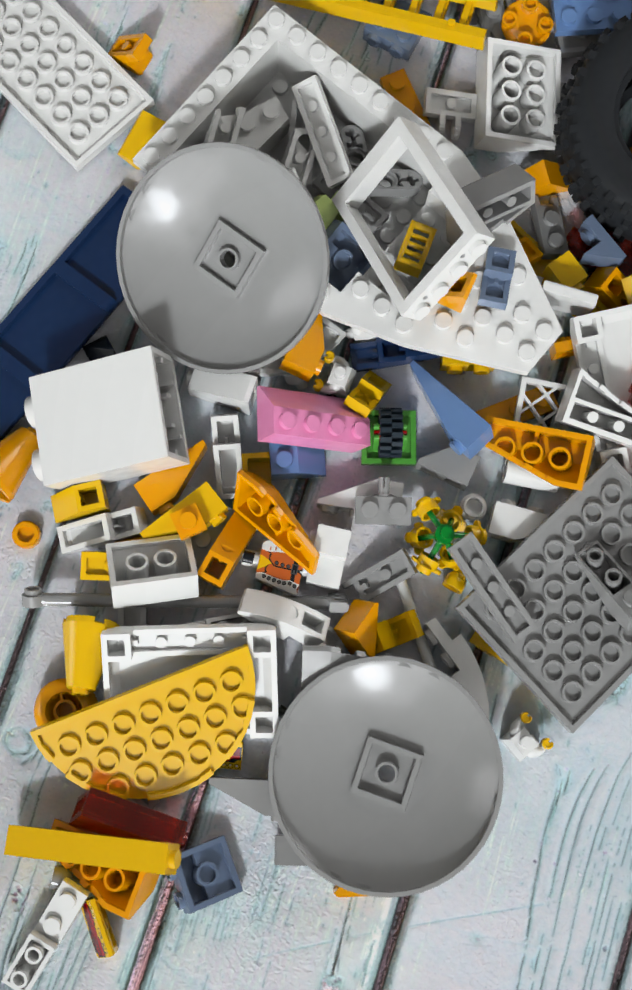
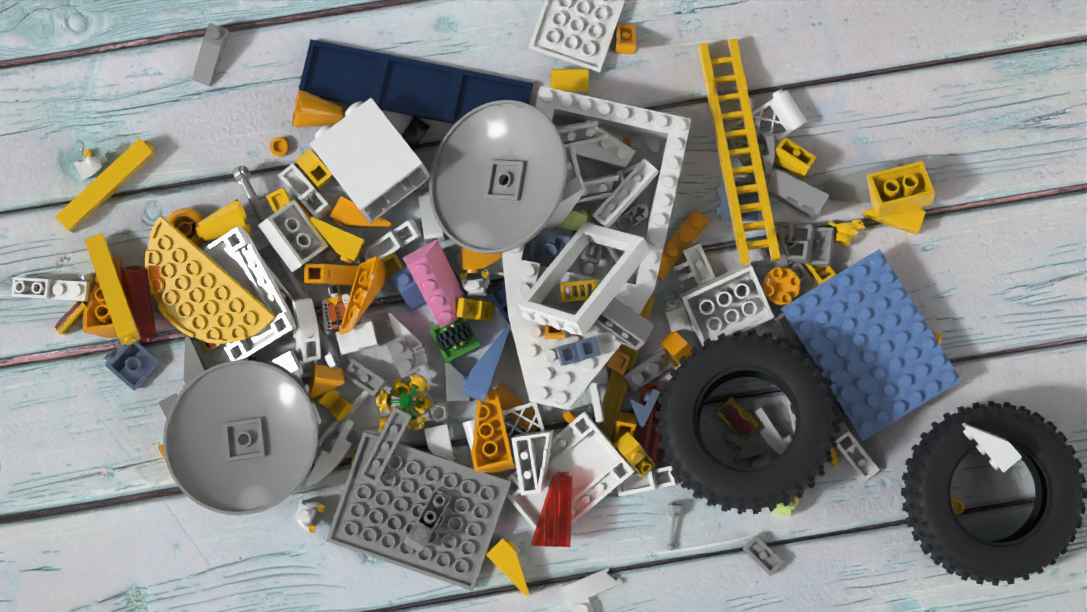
camera: 65 degrees right, 5 degrees up
(188, 521) = (332, 242): light orange plate -> none
(494, 159) = (676, 315): none -> white bracket
(566, 271) = (616, 396): yellow brick -> none

